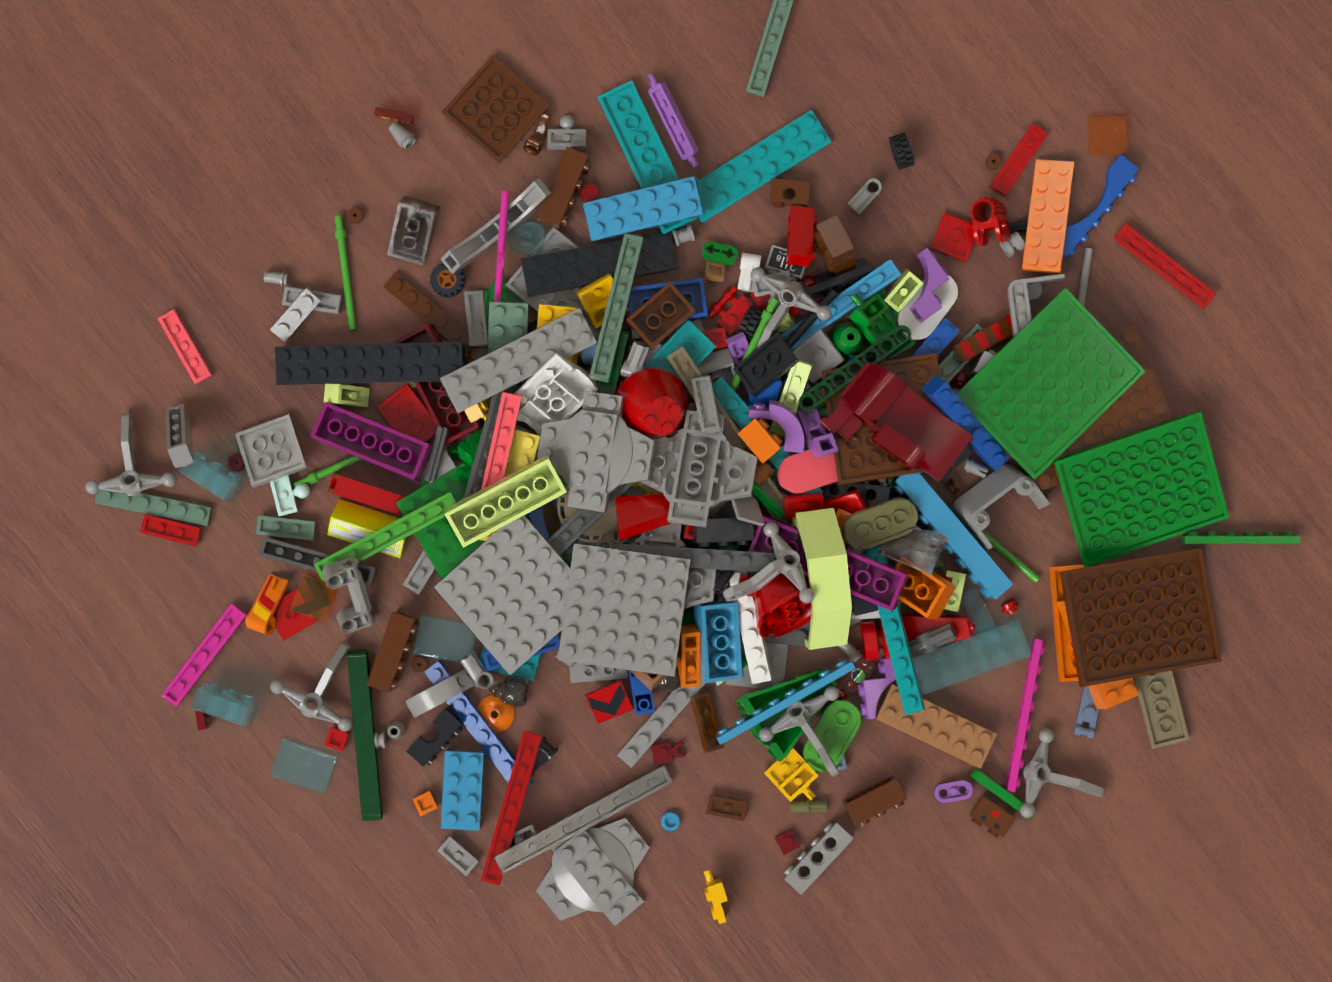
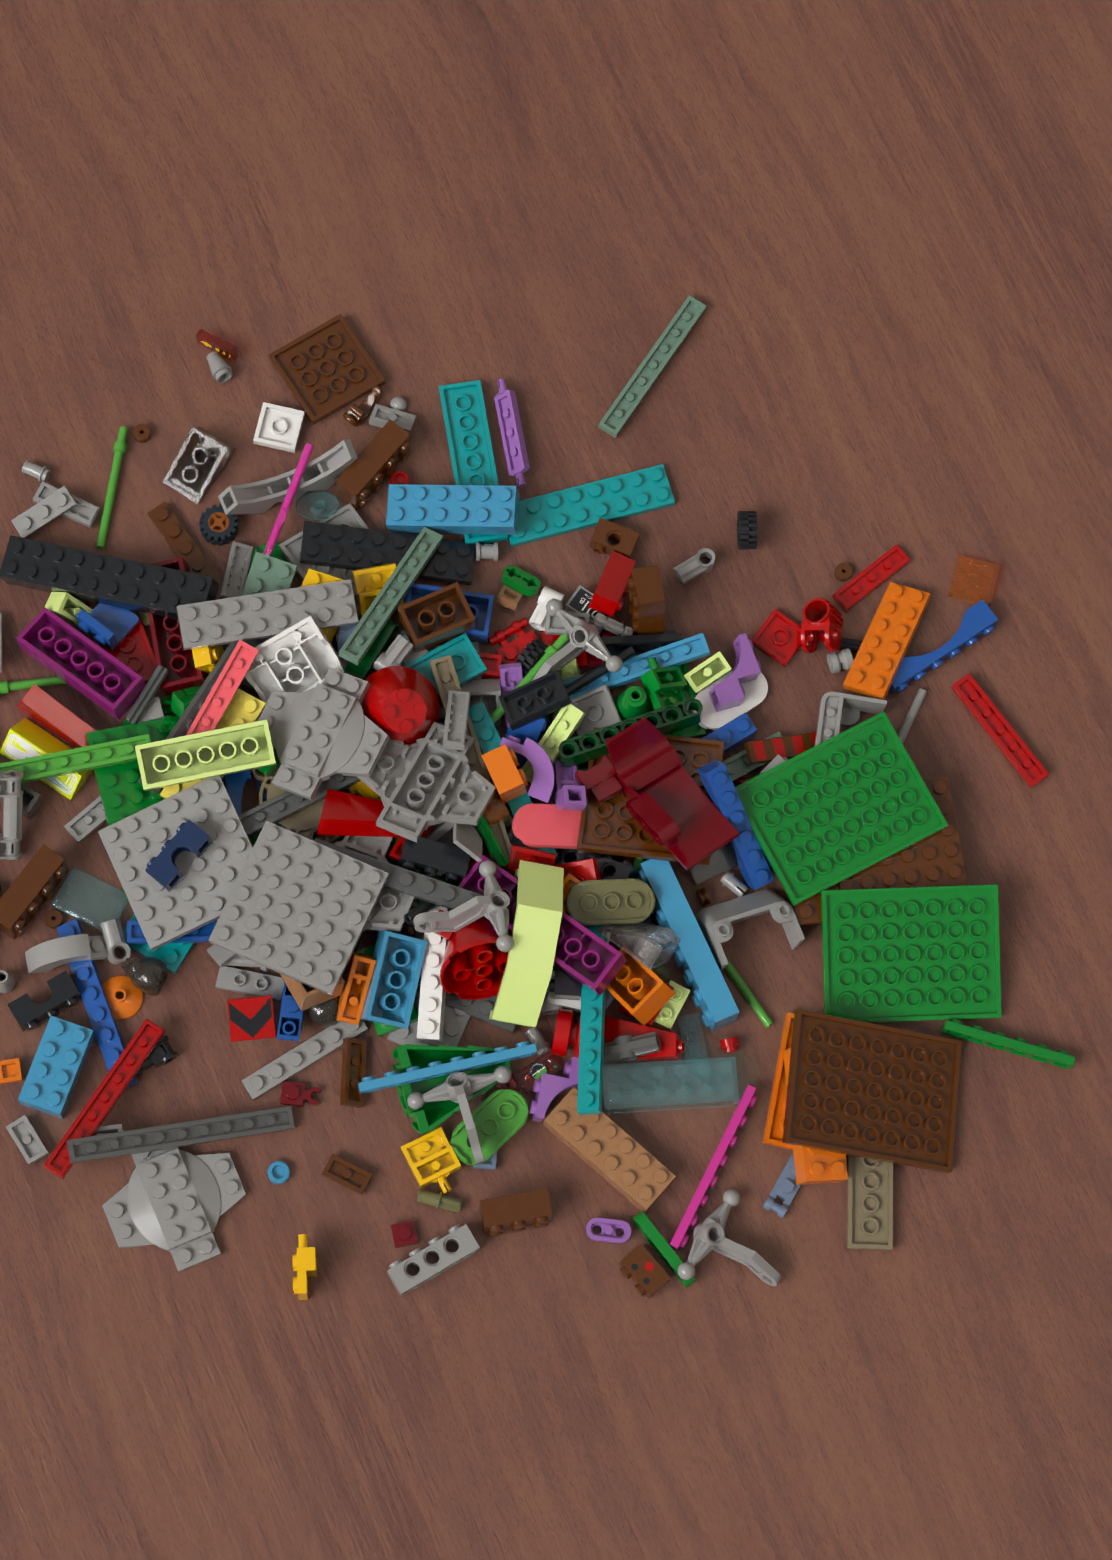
camera: 10 degrees right, 15 degrees down
(382, 400) = (107, 624): none -> blue bracket
(471, 175) = (279, 427): none -> white plate
(501, 608) = (188, 838): none -> dark blue arch
(811, 274) = (612, 625): none -> light grey axle

